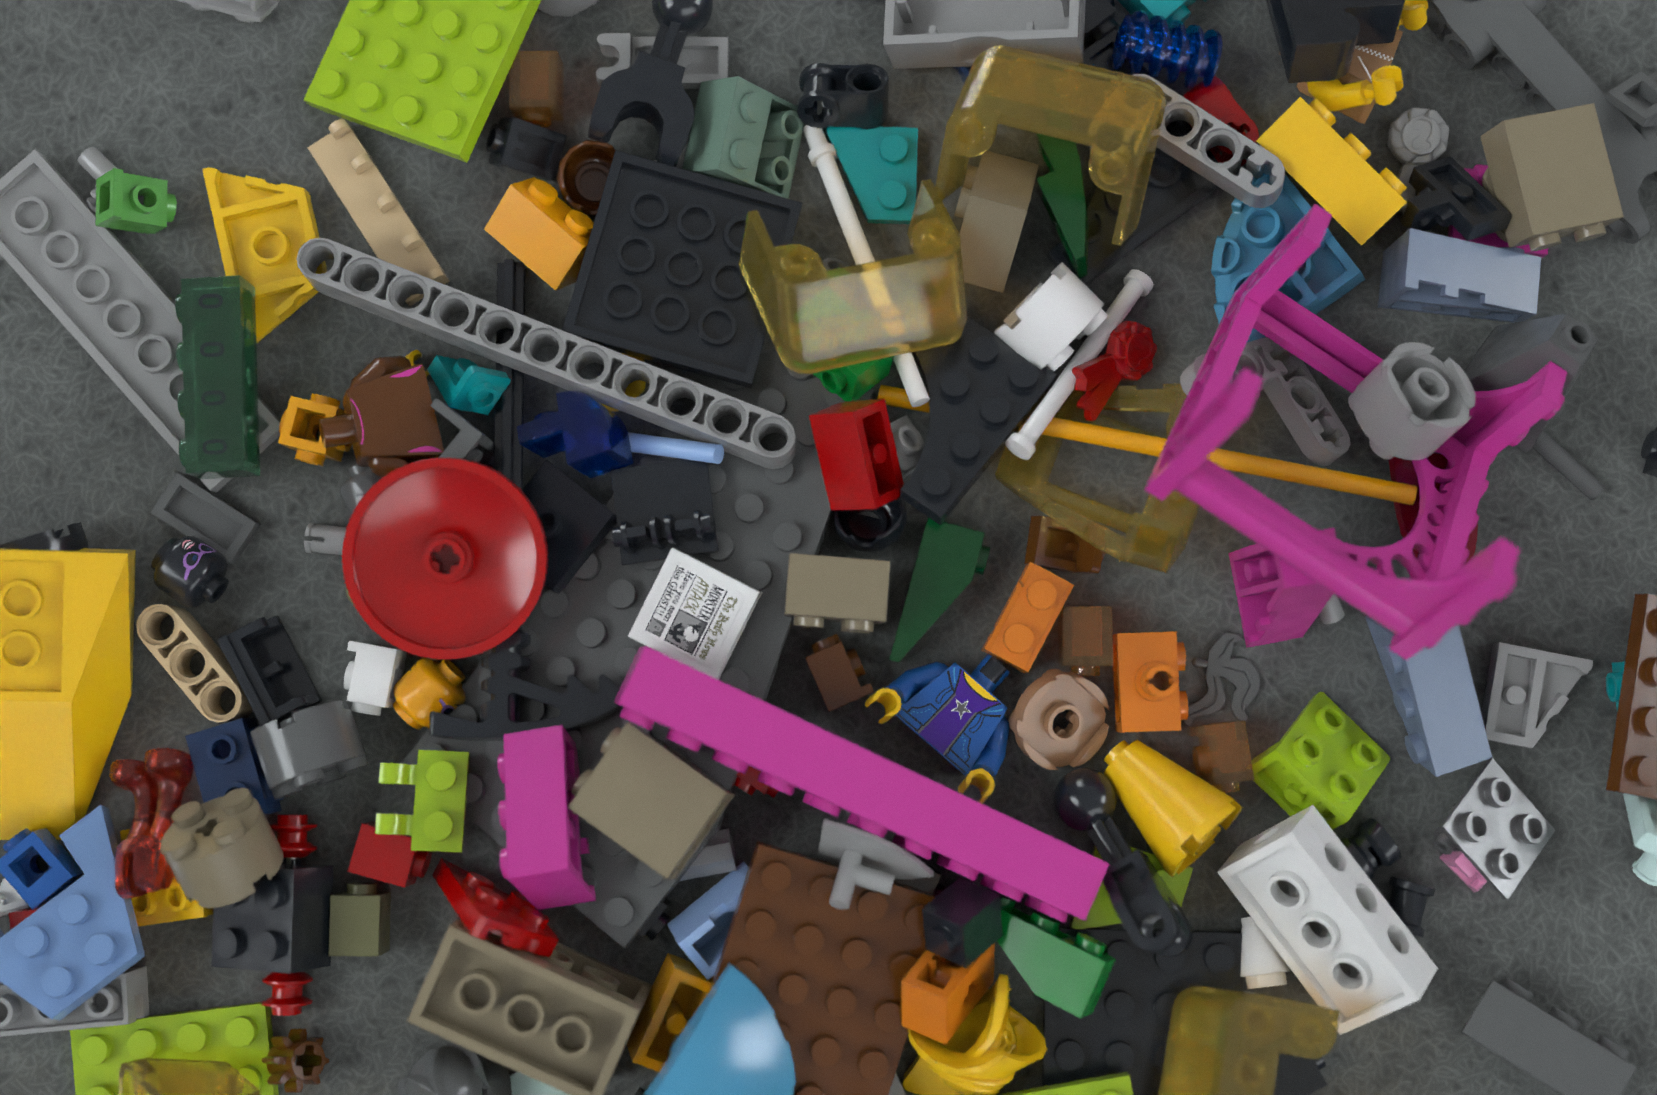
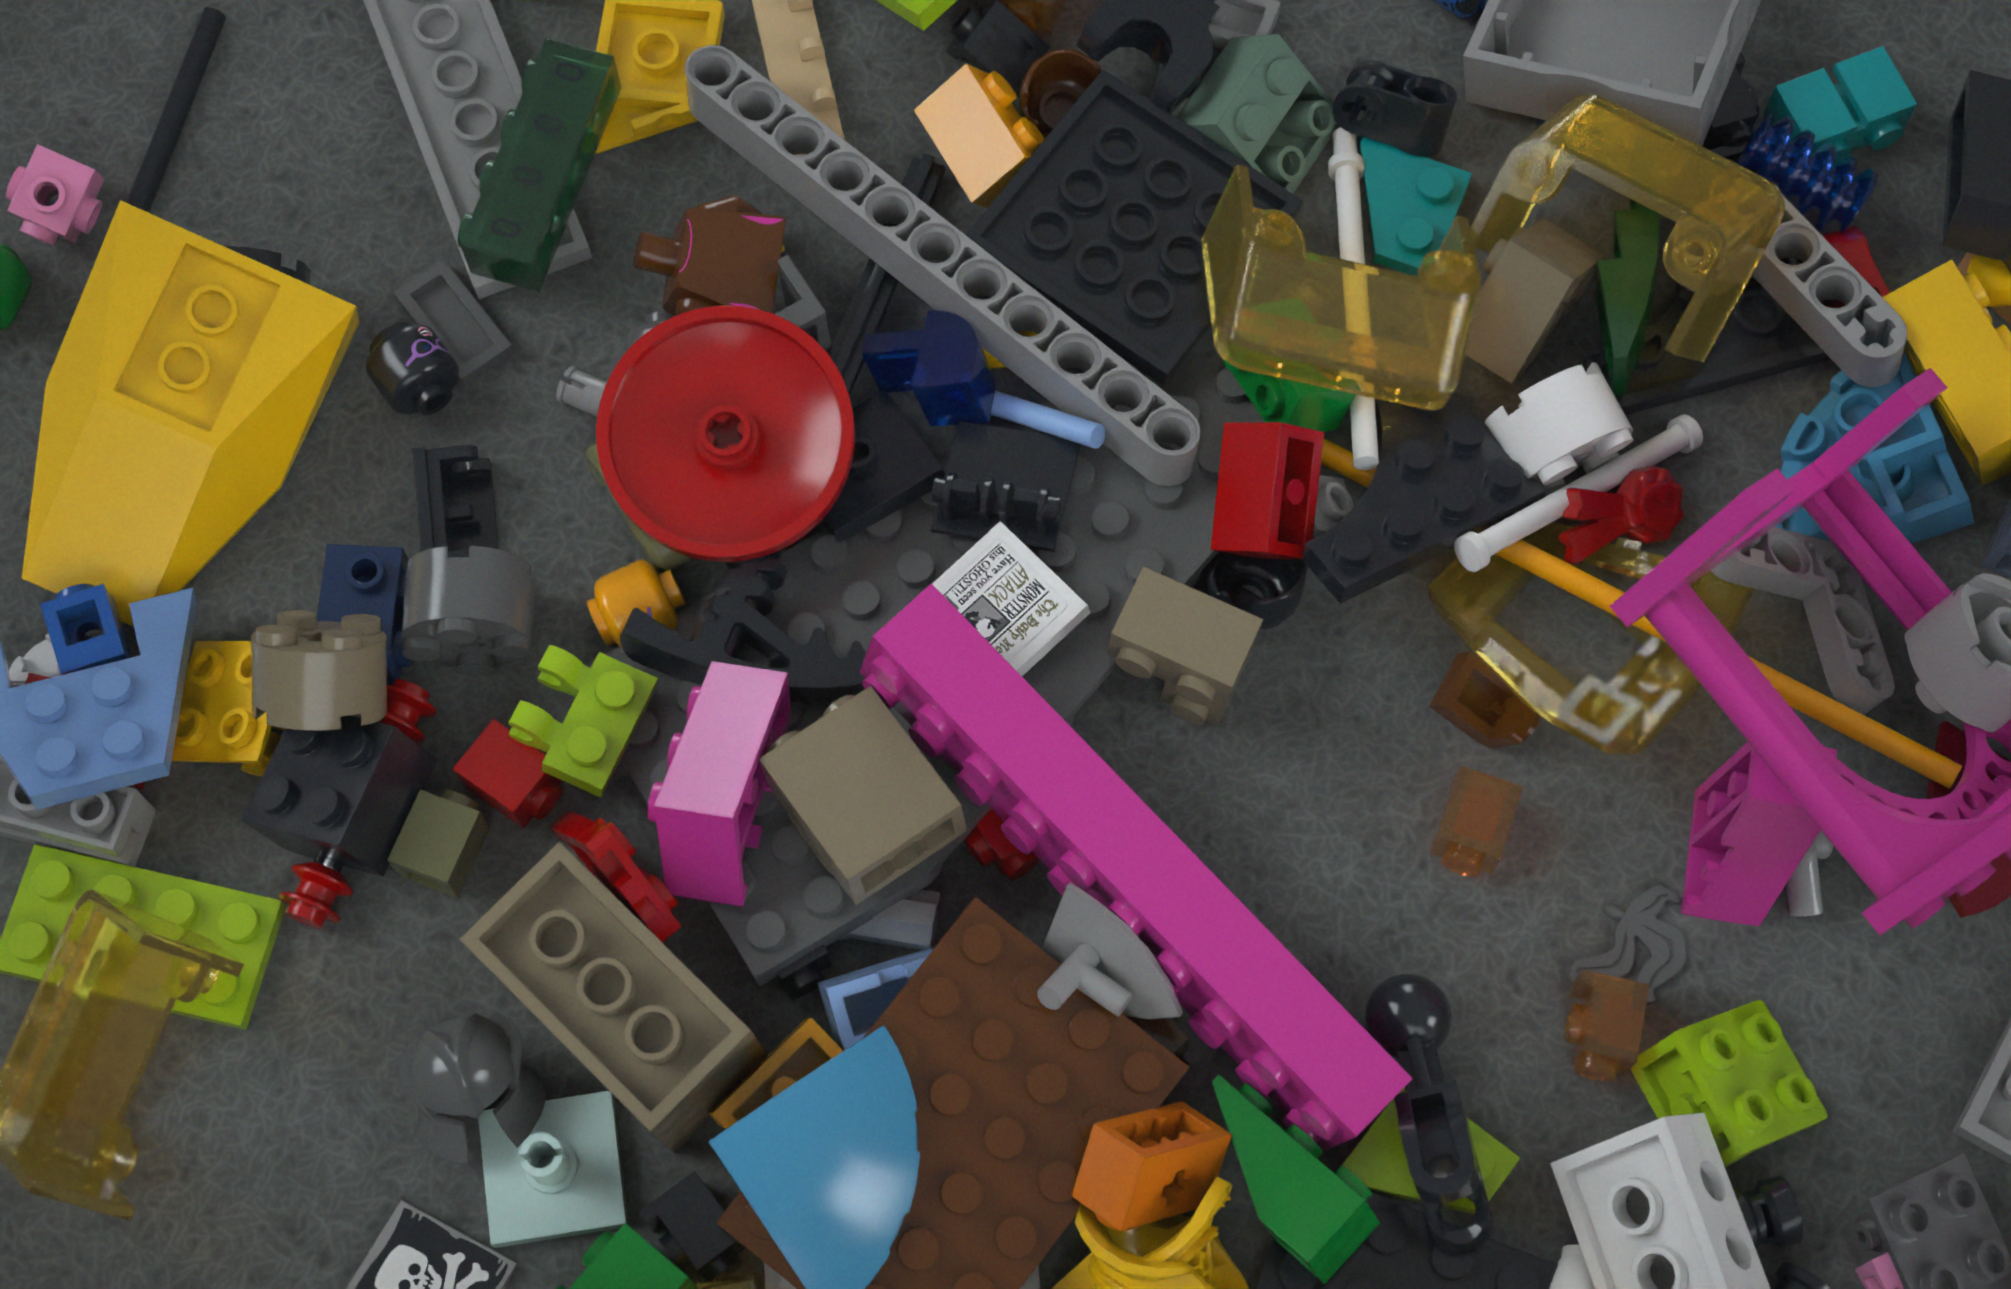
camera: 15 degrees right, 15 degrees down
(157, 792) = (219, 658): clear red piece -> none
(176, 655) = (368, 450): tan beam -> none
(282, 1058) = (290, 979): reddish brown gear -> none
(300, 426) = (610, 258): light orange brick -> none
(373, 676) = (576, 559): white brick -> none
(467, 385) = (831, 269): teal bracket -> none
(837, 672) = (1148, 754): reddish brown brick -> none
(941, 572) = (1314, 688): dark green slope -> none
(954, 716) = (1274, 849): torso -> none
(962, 922) = (1197, 1090): black brick -> none
(1027, 617) = (1409, 770): orange brick -> none
(1042, 702) = (1375, 894): medium nougat plate -> none
(1148, 682) = (1538, 903): orange brick -> none
(1169, 804) = (1518, 1062): yellow cone -> none
(1435, 702) = (1909, 1037): sand blue wedge -> none

